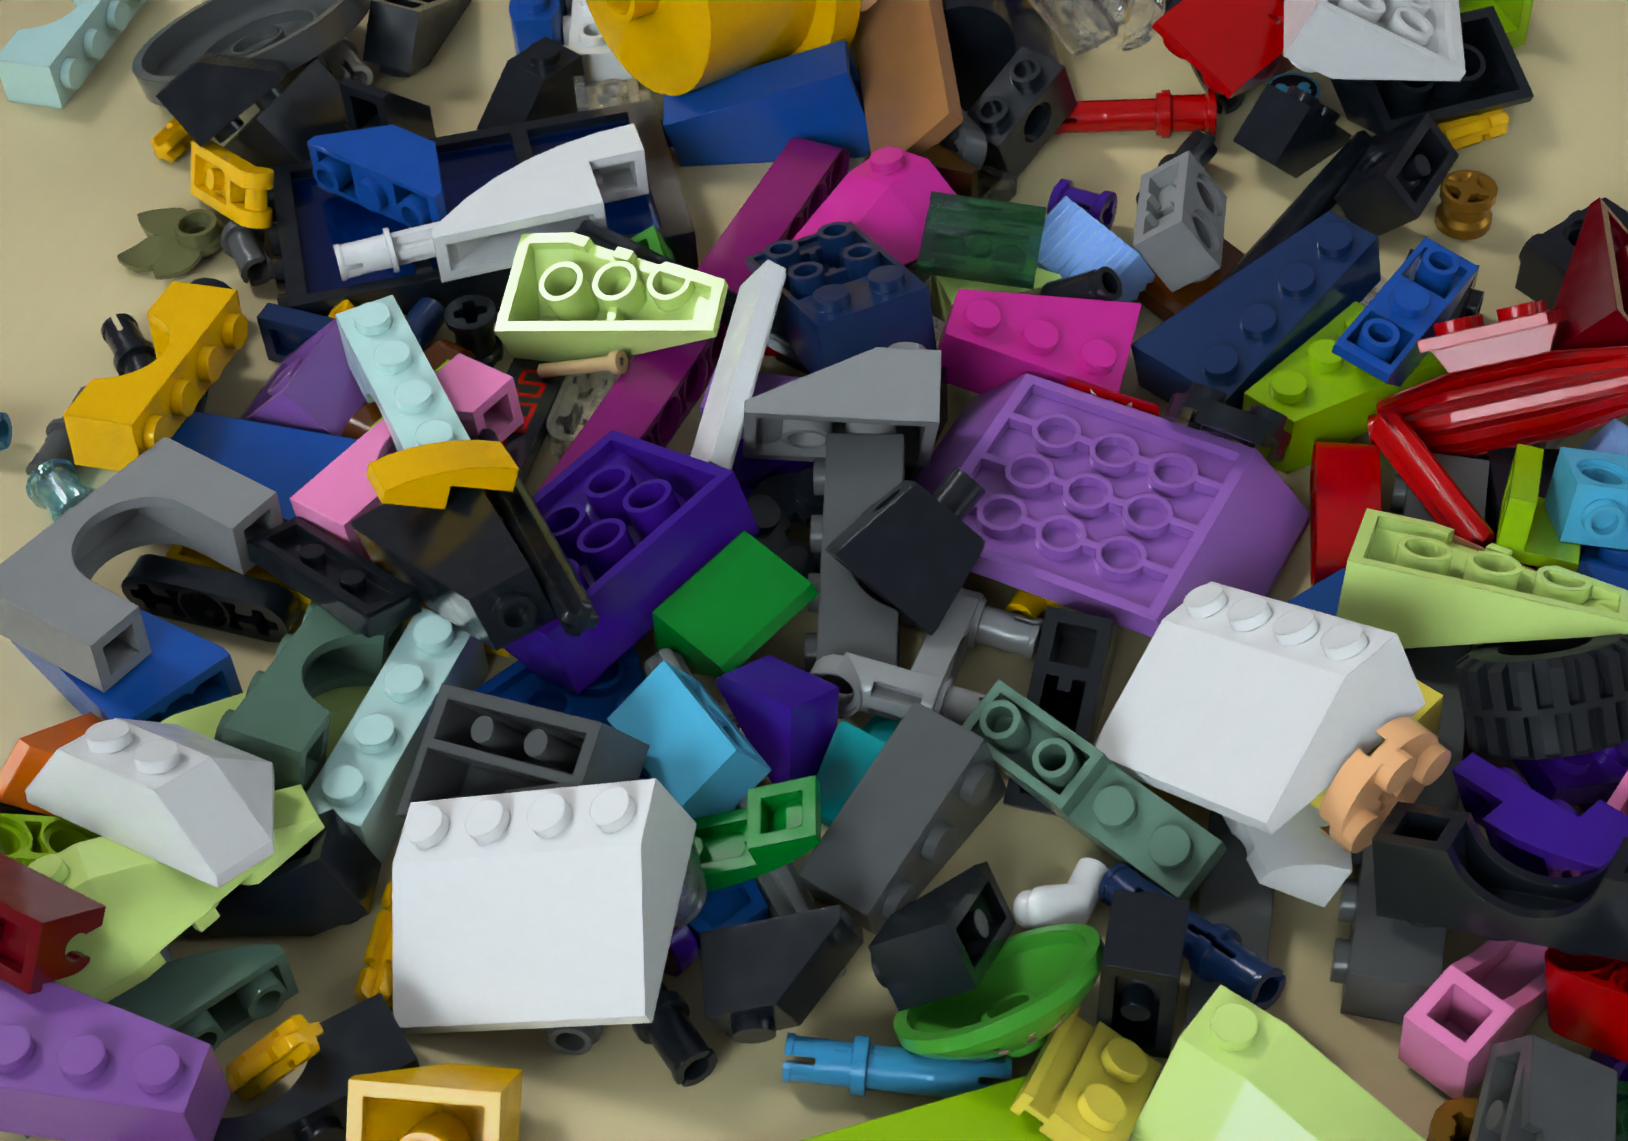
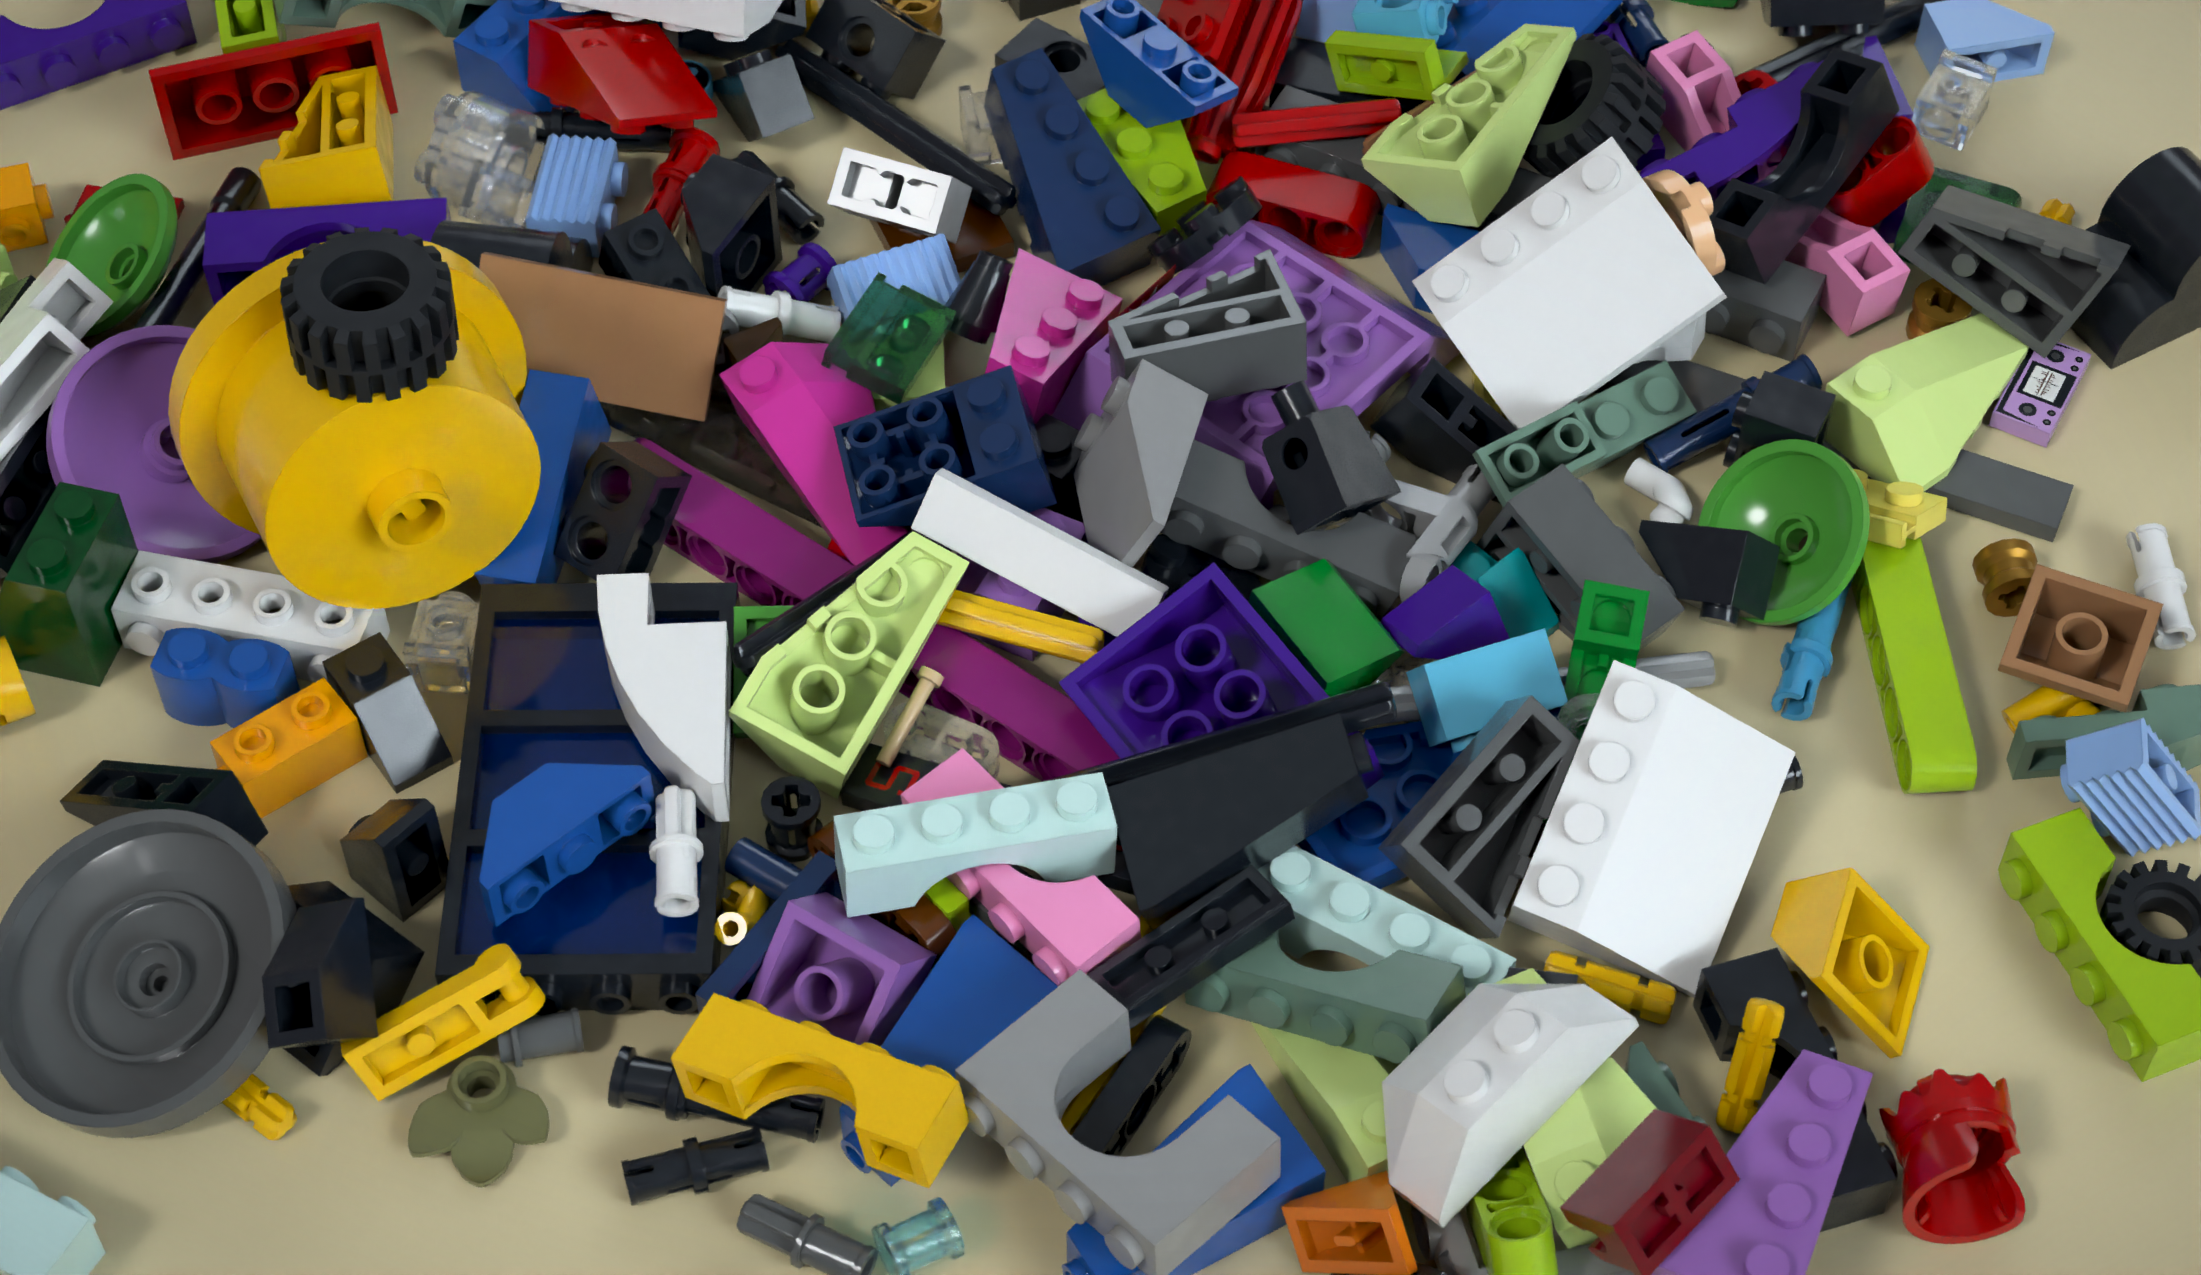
camera: 80 degrees left, 5 degrees up
(426, 472) = (1142, 794): yellow slope -> none
(474, 53) = (291, 747): none -> light orange brick
(686, 395) = (1022, 627): none -> yellow axle
(745, 150) = (633, 520): none -> black brick
(774, 970) = (1729, 669): black slope -> none
(1014, 175) = (797, 317): none -> white pin
(1038, 433) = (1223, 339): none -> dark grey wedge
(1077, 133) = (731, 225): none -> black slope
(1116, 60) = (578, 188): none -> light blue brick

